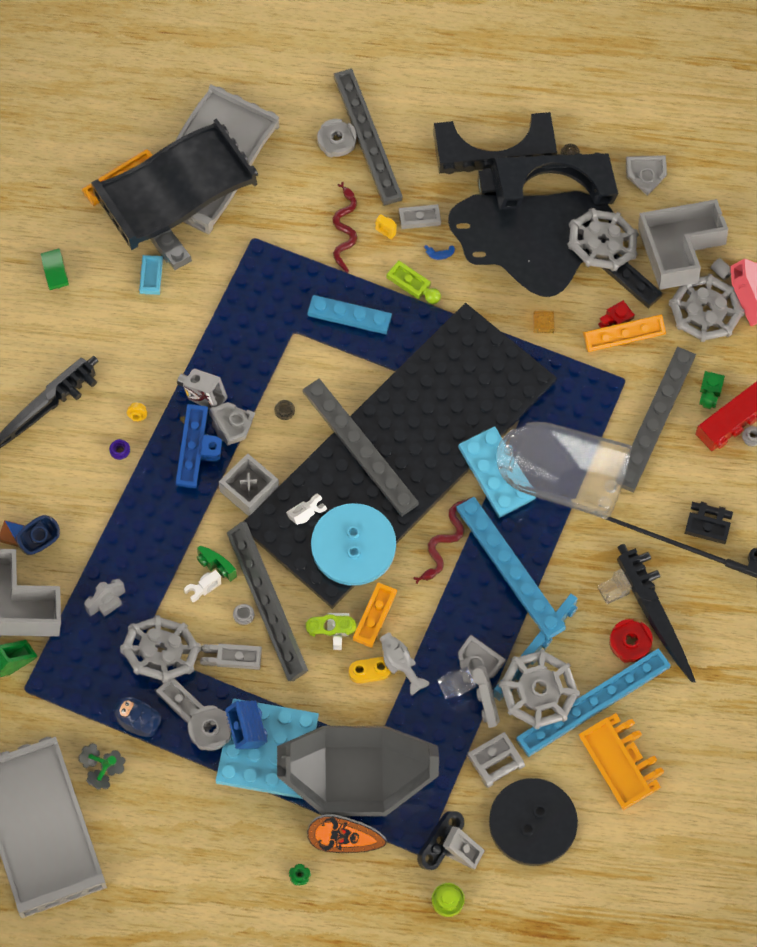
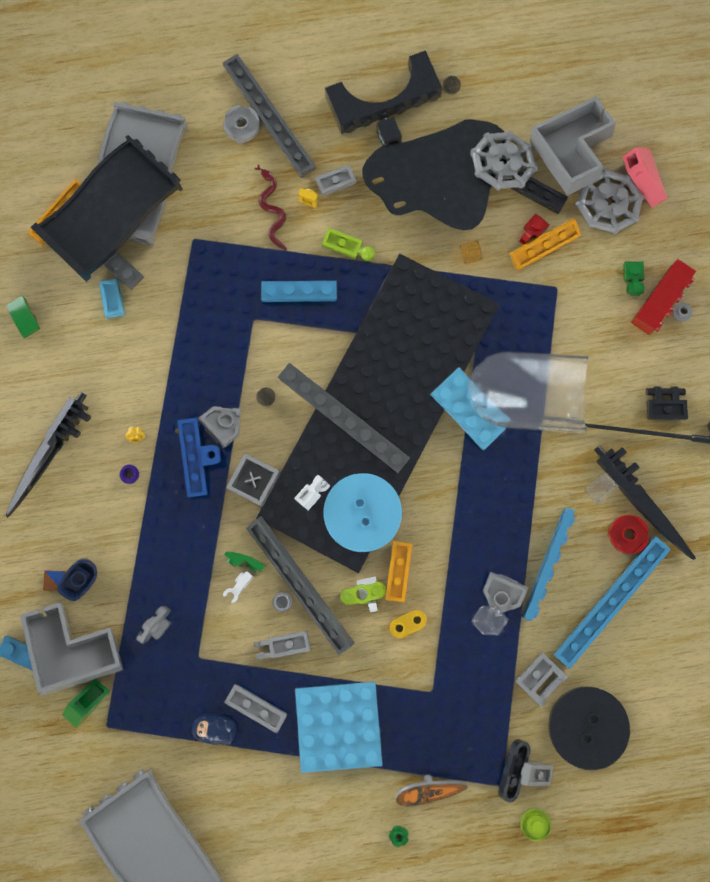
camera: 10 degrees left, 15 degrees up
(110, 762) = (197, 792): dark grey plant -> none
(159, 638) = (225, 668): light grey plate -> none
(203, 388) = (187, 400): light grey torso -> none
(204, 739) = (280, 740): light grey plate -> none
(246, 725) = (316, 720): blue brick -> none
(357, 768) = (425, 732): dark grey panel -> none
(398, 658) = (430, 609): light grey animal -> none
(431, 573) = (435, 518): dark red animal -> none
(439, 255) = (362, 212): blue piece -> none
(485, 694) = (519, 626): light grey hinge -> none
(511, 568) = (508, 497): dark azure plate -> none
(531, 698) = (560, 618): light grey plate -> none
(590, 170) = (474, 97): black arch -> none
(618, 761) = (650, 653): light orange hinge -> none
(646, 171) = (523, 85): light grey plate -> none
(657, 416) = (594, 311): dark grey plate -> none
(721, 268) = (613, 160): light grey hinge -> none

